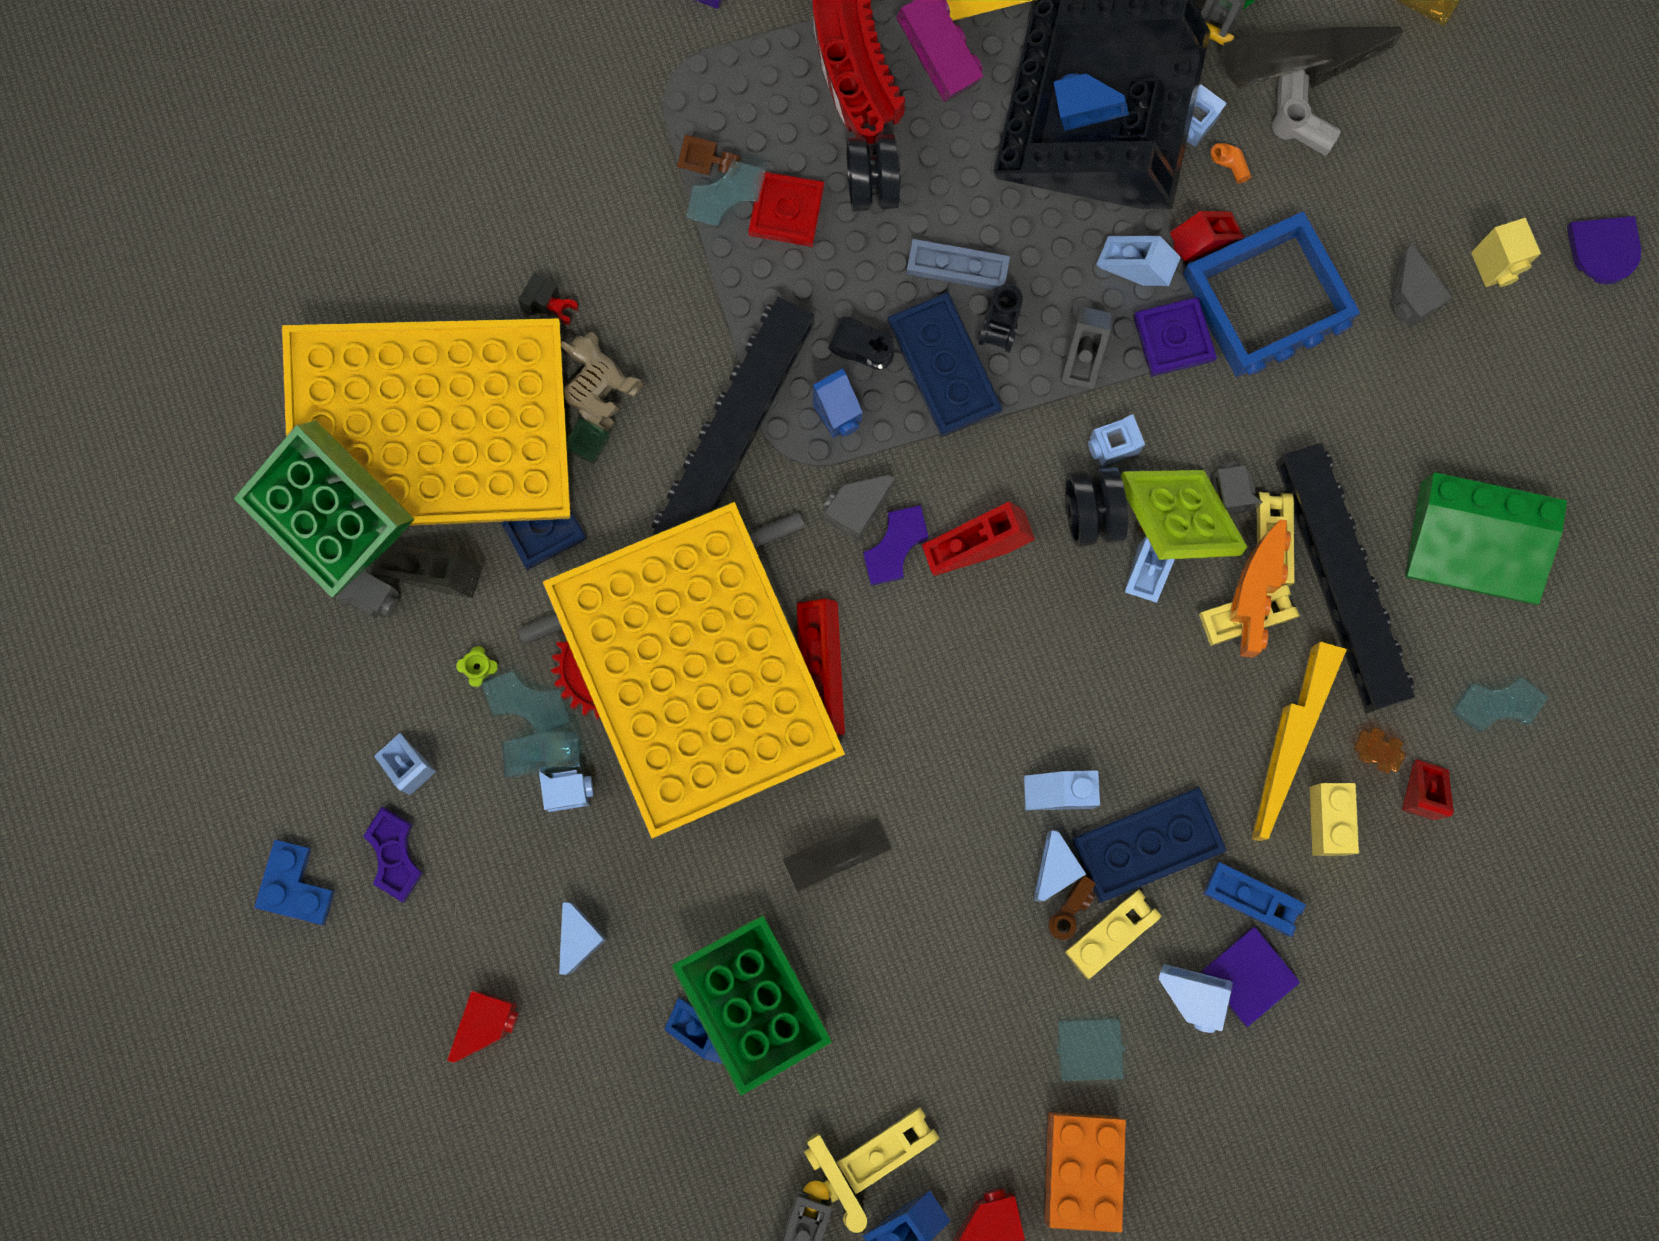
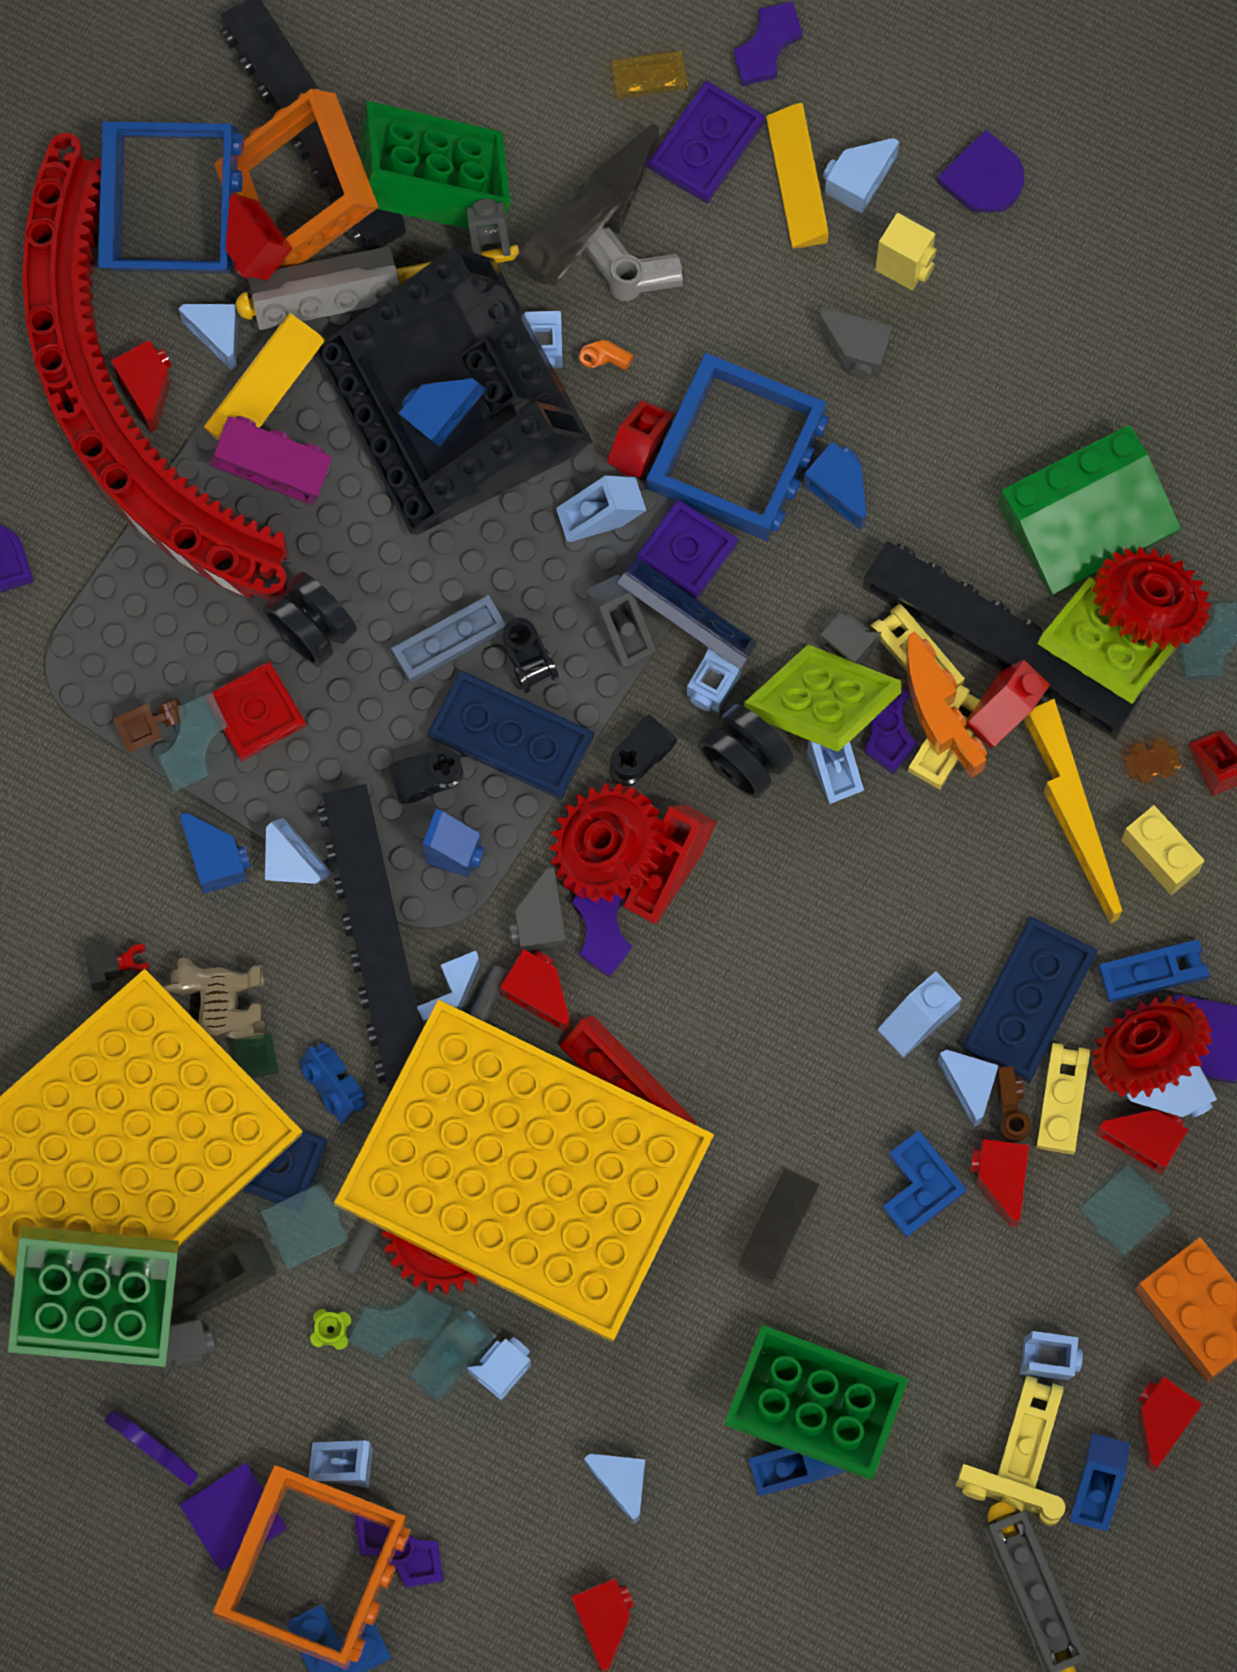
camera: 35 degrees left, 5 degrees down
(285, 772) = (255, 1537): none -> orange window
(287, 645) = (151, 1447): none -> dark purple tile
(303, 738) = (224, 1514): none -> dark purple tile
(518, 581) = (304, 1225): none -> clear light blue piece
(618, 512) = (321, 1069): none -> blue hinge
(675, 283) = (214, 854): none -> blue slope
(724, 324) = (290, 857): none -> light blue slope
(766, 502) = (459, 978): none -> light blue slope
(813, 551) = (537, 989): none -> red slope
(922, 494) = (599, 870): none -> red gear
(948, 1109) = (1050, 1355): none -> light blue window
(968, 917) = (931, 1186): none -> blue plate
(1022, 953) = (1002, 1176): none -> red slope
(1030, 448) = (645, 747): none -> black piece
(1136, 378) = (687, 613): none -> dark blue tile
(1149, 1013) = (1145, 1136): none -> red slope
(1204, 583) = (889, 739): none -> dark purple tile
(1207, 955) = (1152, 1047): none -> red gear
(1310, 624) = (1006, 702): none -> red slope
(1320, 375) = (839, 483): none -> blue slope
(1422, 641) = (1098, 650): none -> lime plate
(1426, 72) = (706, 142): none -> dark purple tile
(1471, 145) = (797, 177): none -> yellow slope
(1477, 635) = (1151, 598): none -> red gear
(1514, 42) = (776, 30): none -> dark purple tile
(1518, 175) = (859, 172): none -> light blue slope

